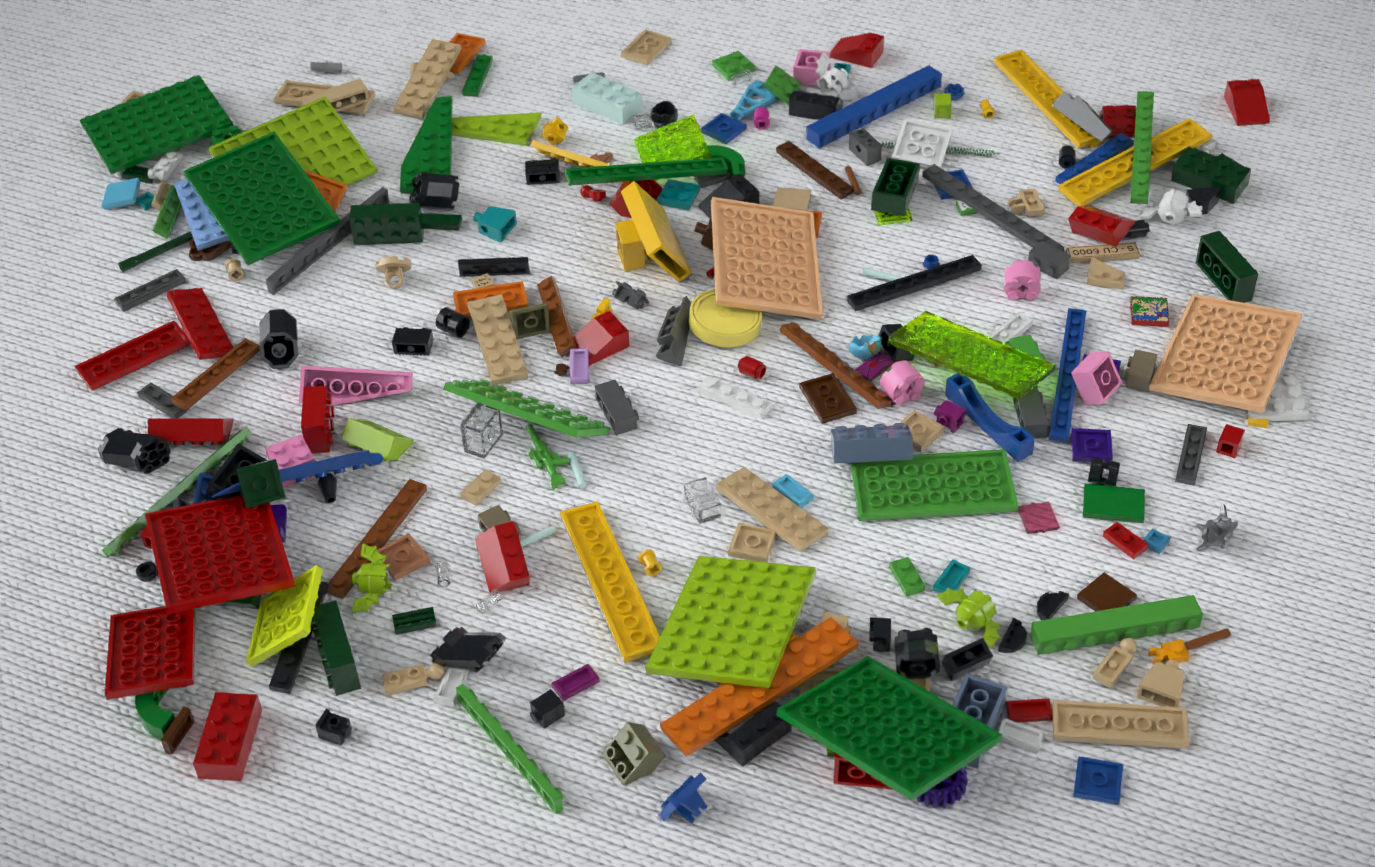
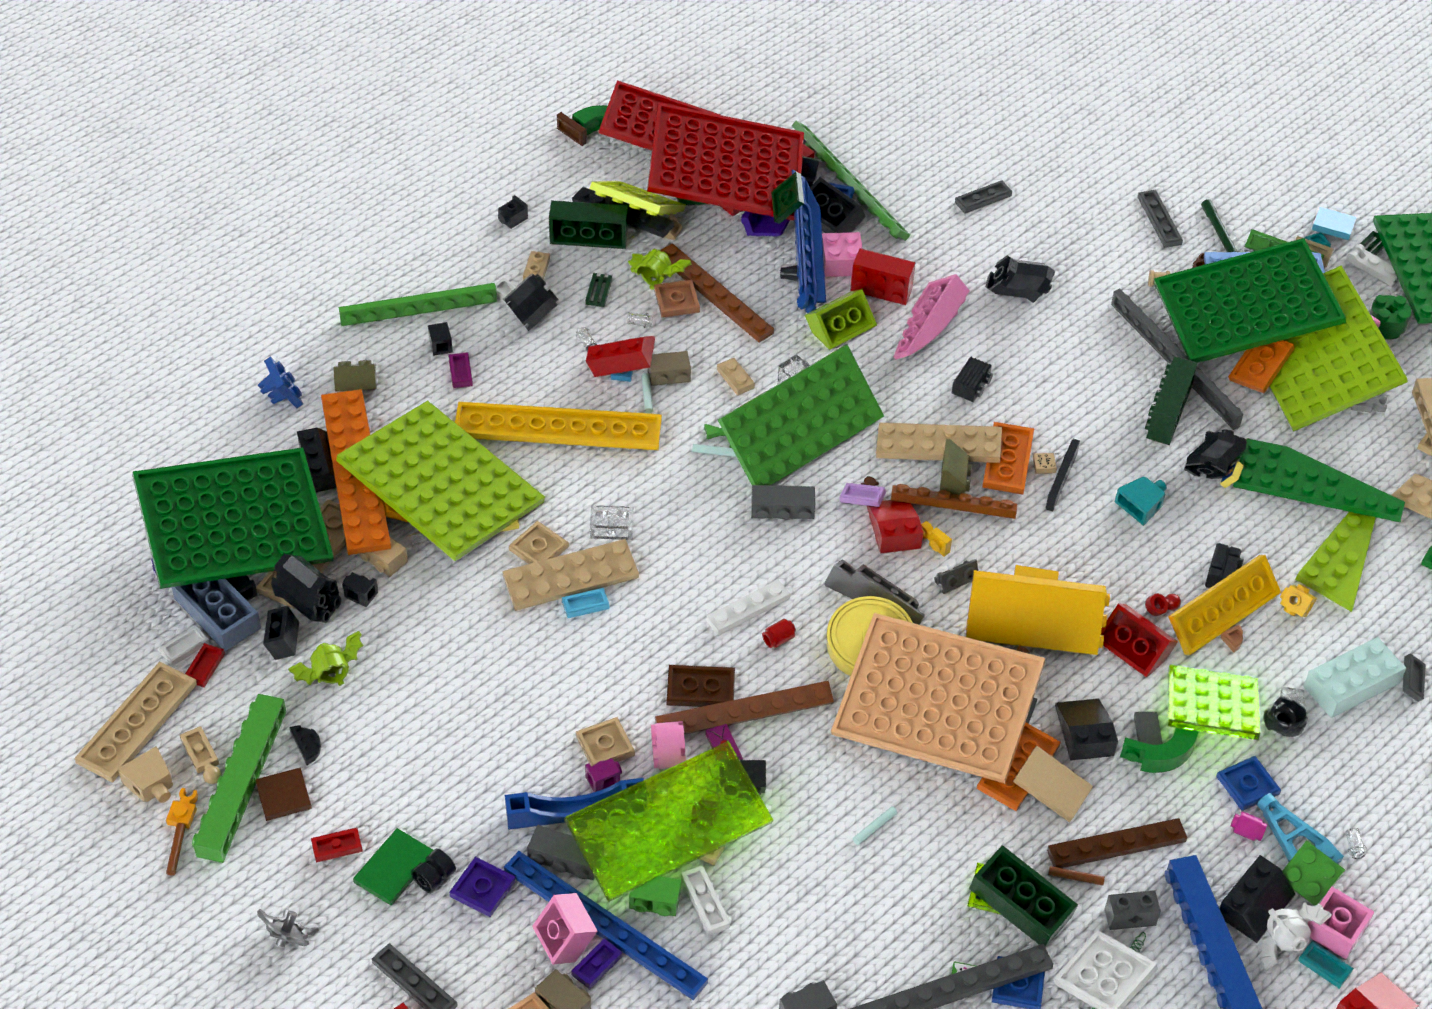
camera: 110 degrees right, 5 degrees up
(132, 355) = (1058, 187): red plate -> none
(134, 450) = (908, 155): black brick -> none
(191, 429) = (928, 201): red slope -> none
(200, 323) = (1082, 237): red plate -> none
(215, 374) = (992, 227): dark orange plate -> none
(227, 736) = (544, 152): red brick -> none
(393, 267) = (1093, 389): tan tile -> none
(441, 221) = (1175, 454): dark green tile -> none
(452, 322) = (983, 413): black wheel -> none
(645, 171) = (1150, 641): green plate -> none
(651, 565) = (558, 458): yellow bush -> none
(678, 194) = (1127, 686): teal plate -> none
(732, 64) = (1392, 848): bright green plate -> none
(865, 346) = (753, 742): medium azure hair -> none
(871, 443) = (594, 677): sand blue brick -> none
(907, 576) = (417, 645): bright green plate -> none
(913, 283) = (841, 848): black plate -> none
(931, 261) = (873, 877): blue plate -> none
(934, 486) = (516, 717): bright green plate -> none
(951, 577) = (392, 679): teal tile -> none
(1014, 637) = (292, 695): black tile -> none
(1022, 280) = (774, 946): bright pink brick -> none
(1038, 517) = (421, 791): clear pink piece -> none
(1098, 780) = (98, 678): blue tile -> none
(1156, 541) = (321, 877): dark azure tile -> none

